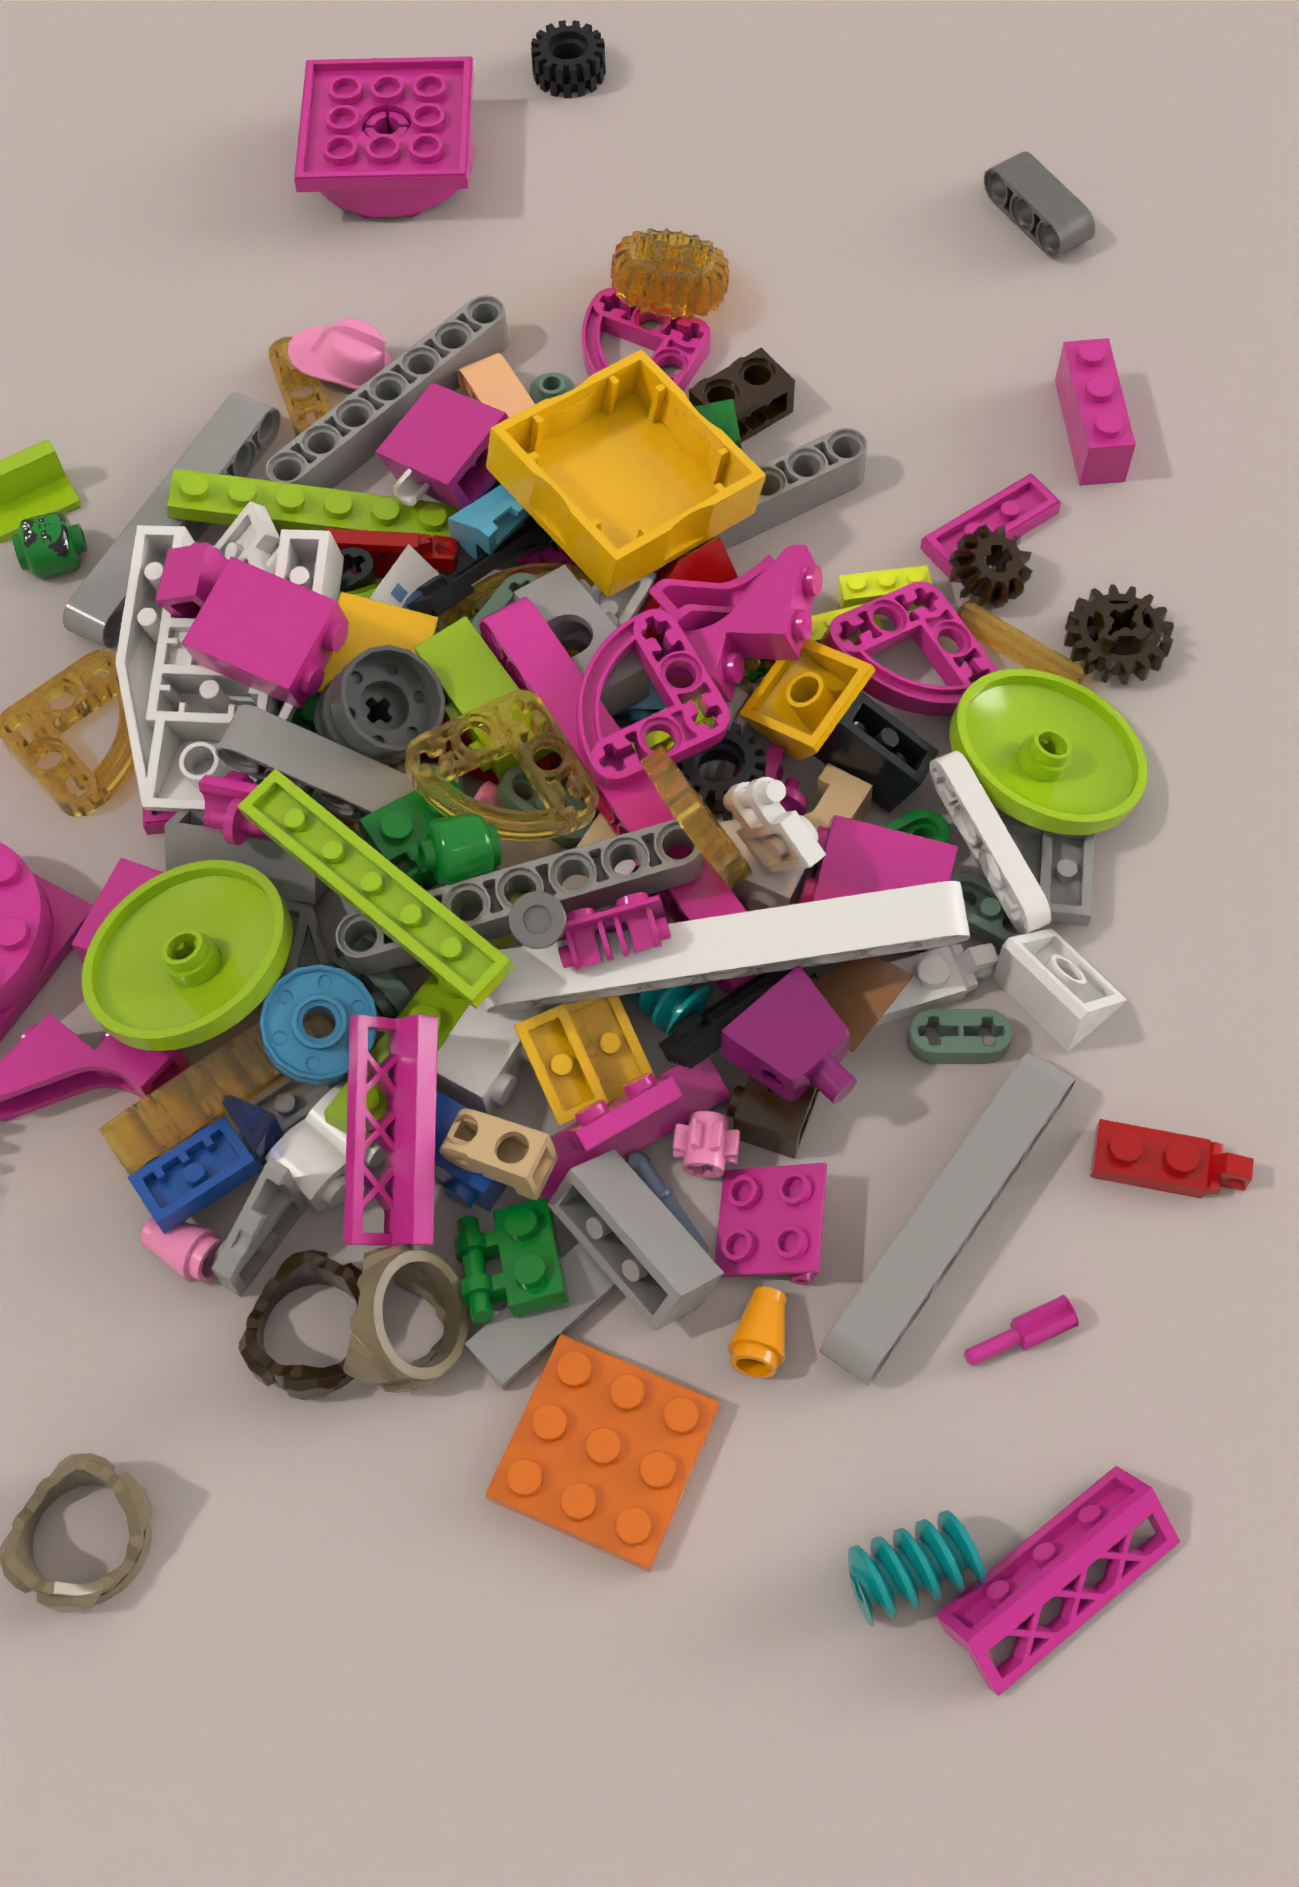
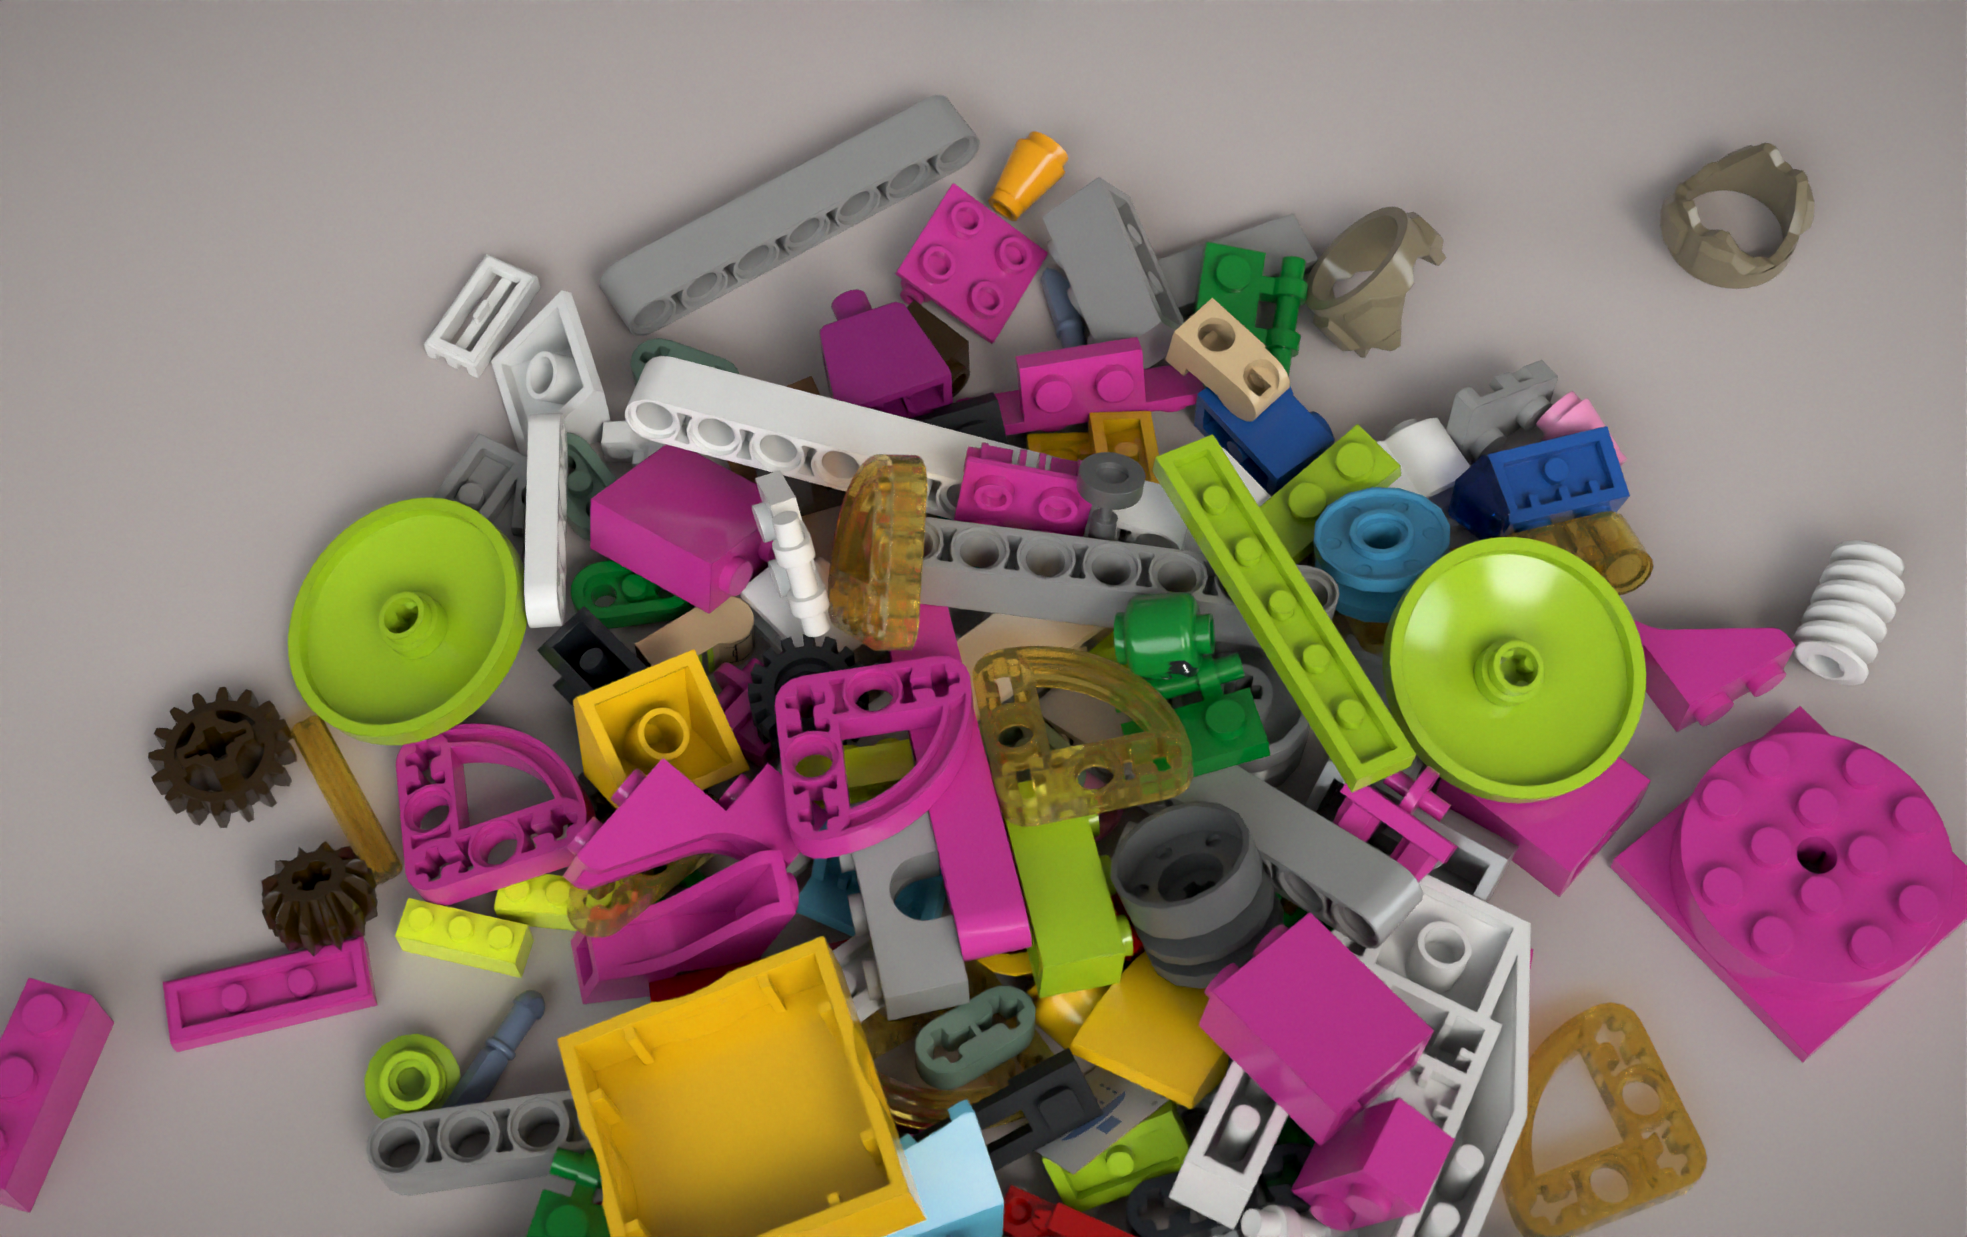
camera: 160 degrees left, 0 degrees up
(295, 1272) = (1450, 359): dark brown piece -> none
(408, 1134) = (1318, 414): dark pink fence -> none
(603, 1452) = (1215, 141): orange plate -> none
(706, 1144) = (998, 342): bright pink gear -> none
(825, 530) = (499, 1048): none -> sand blue piece
(865, 496) = (410, 1076): none -> lime piece
(1028, 1330) = (773, 105): dark pink axle -> none
(1158, 1074) = (477, 360): none -> white tile
(1166, 1161) = (555, 200): red hinge -> none

